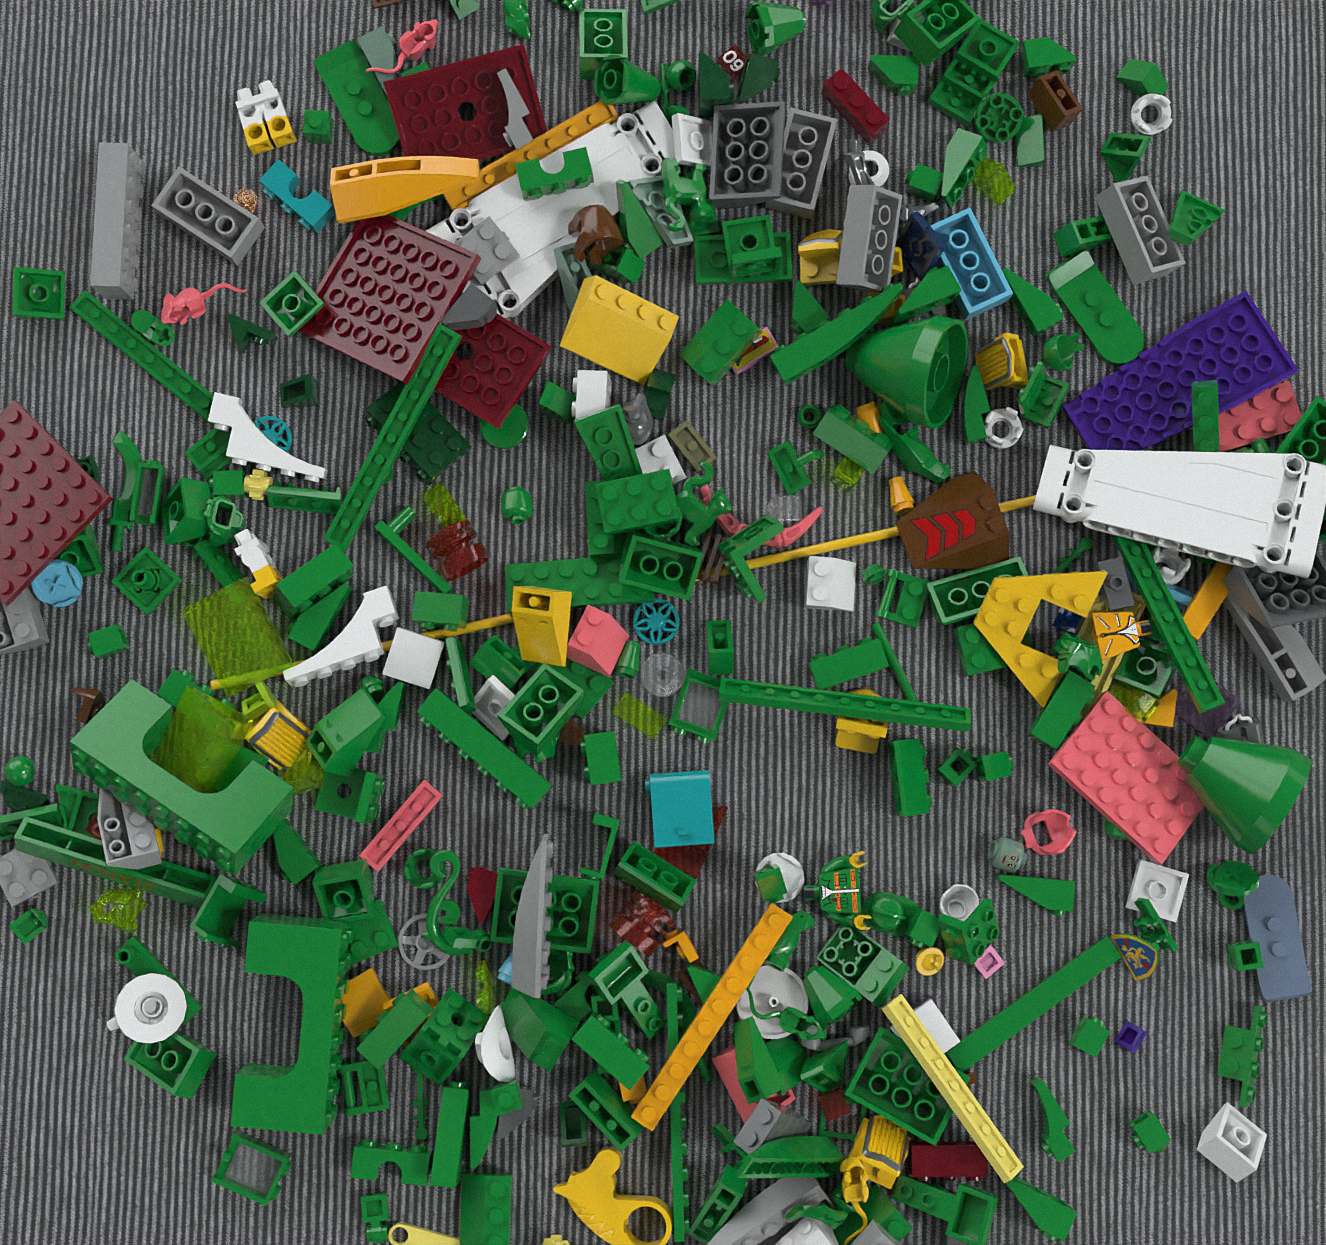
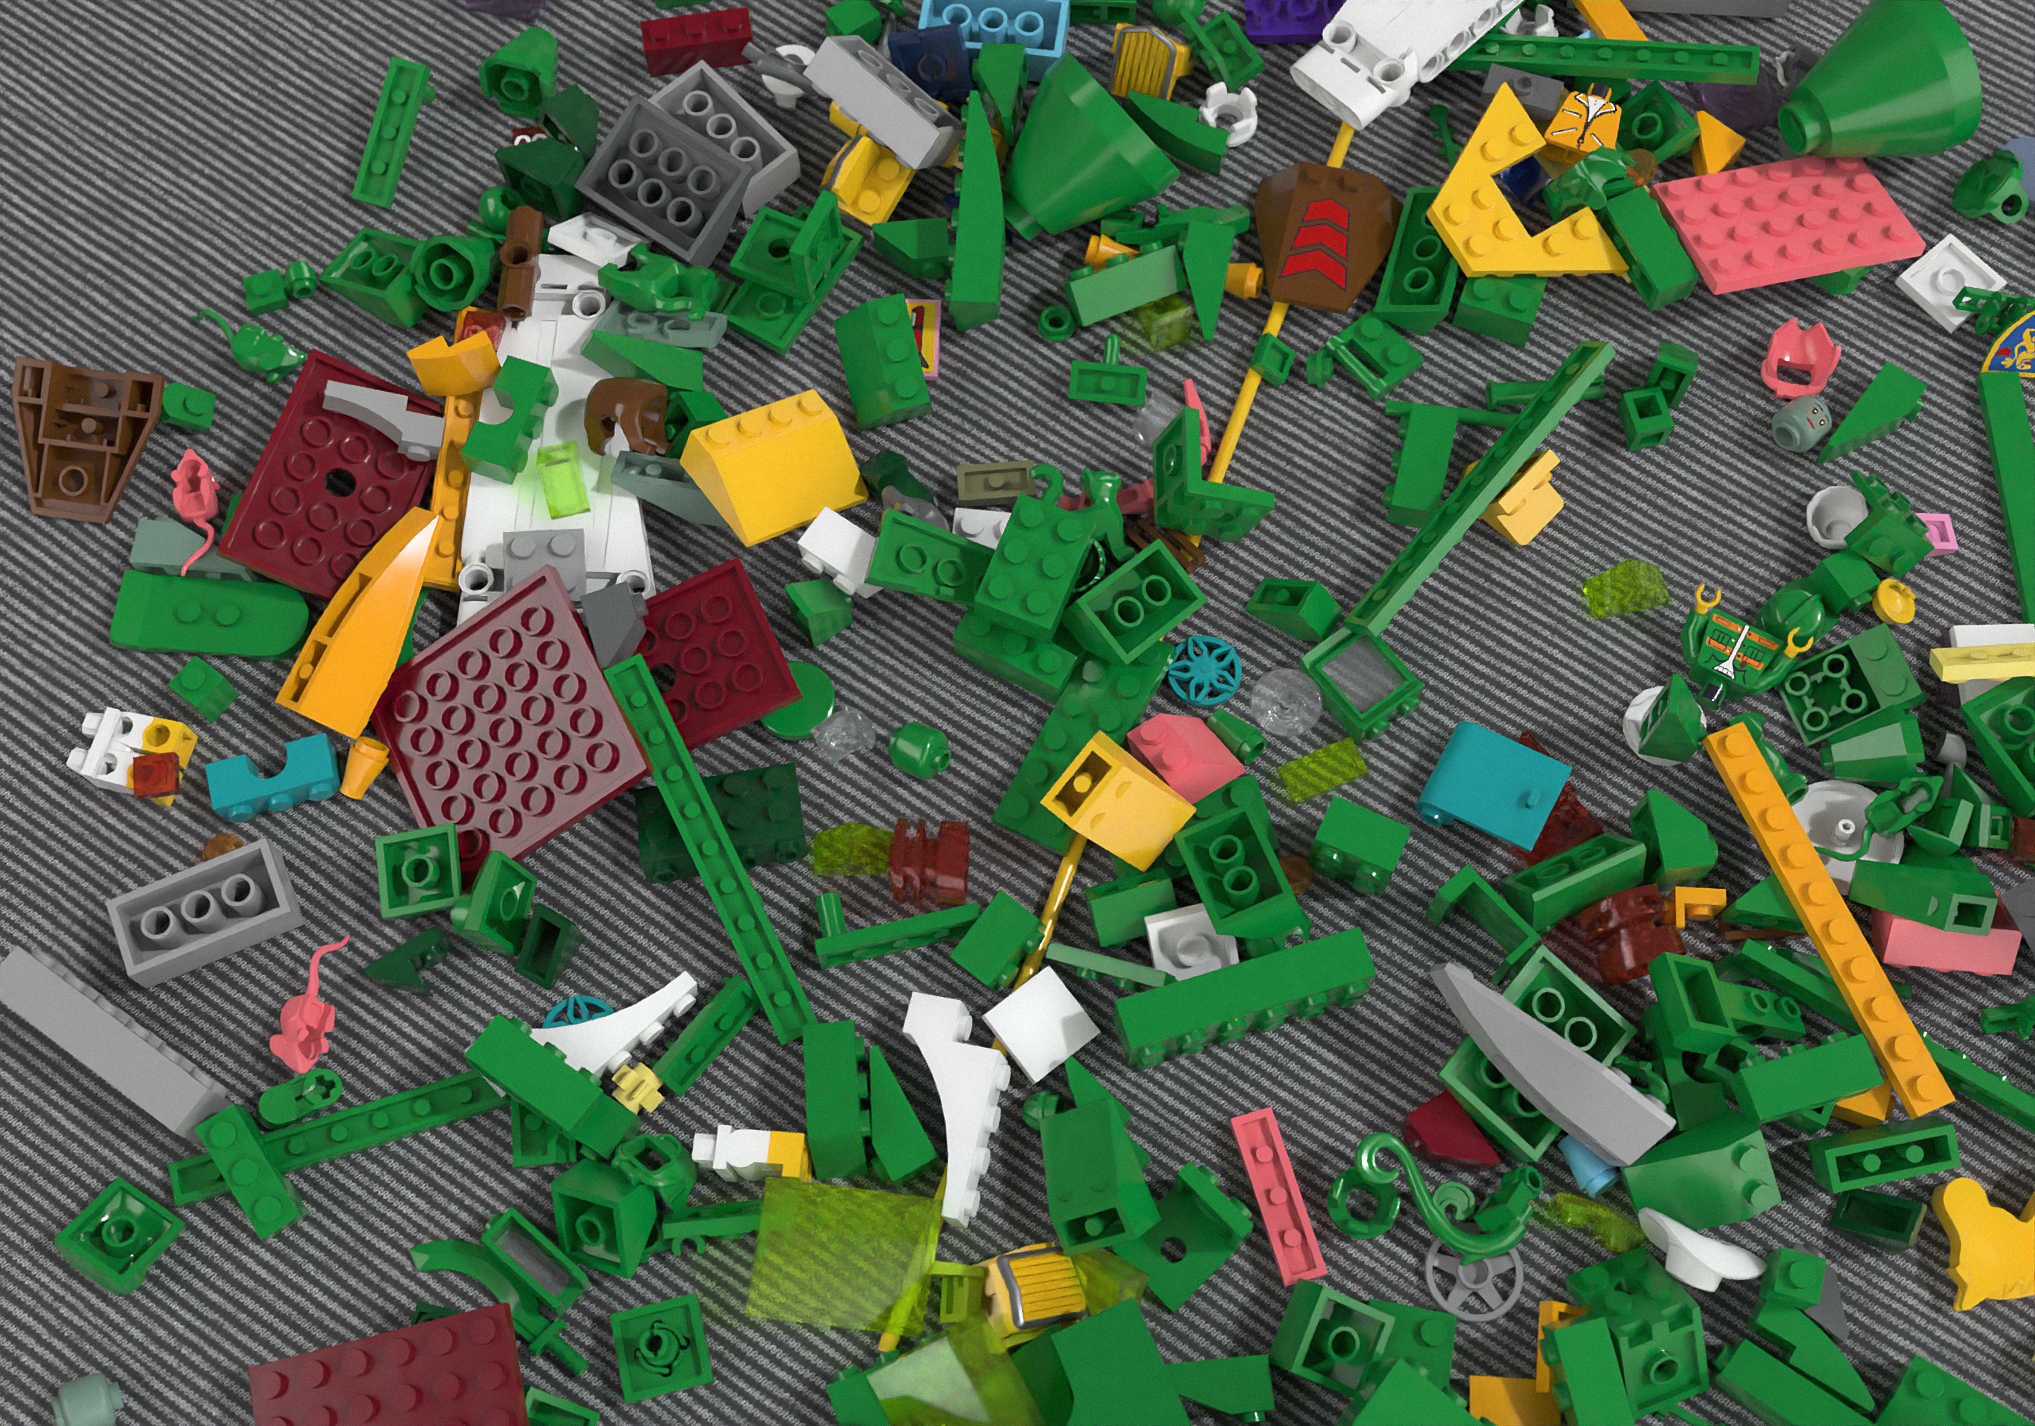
camera: 55 degrees left, 15 degrees down
(106, 318) = (258, 1186): none -> green arch
(222, 435) = (535, 1075): none -> green brick
(256, 140) = (156, 775): none -> clear red tile
(300, 353) = (497, 906): none -> green slope
(331, 235) = (363, 765): none -> light orange cone
(501, 461) = (843, 734): none -> clear plate
(541, 222) = (563, 479): none -> clear neon green slope
(565, 130) = (457, 368): none -> light orange slope
(597, 120) = (478, 321): none -> clear red tile
(659, 104) = (518, 279): none -> reddish brown piece
(704, 918) = (1674, 840): none -> green slope
(802, 1052) = (1943, 826): none -> green plate
(830, 584) = (1294, 429): white slope -> none
(846, 815) = (1625, 589): none -> clear neon green slope
(862, 546) = (1272, 359): none -> green tile
(886, 478) = (1207, 259): none -> green slope
(909, 777) = (1623, 482): green slope -> none
(931, 693) = (1524, 391): none -> green pin
(1112, 676) = (1645, 169): none -> clear orange plate
(1134, 701) = (1689, 160): clear neon green tile -> none

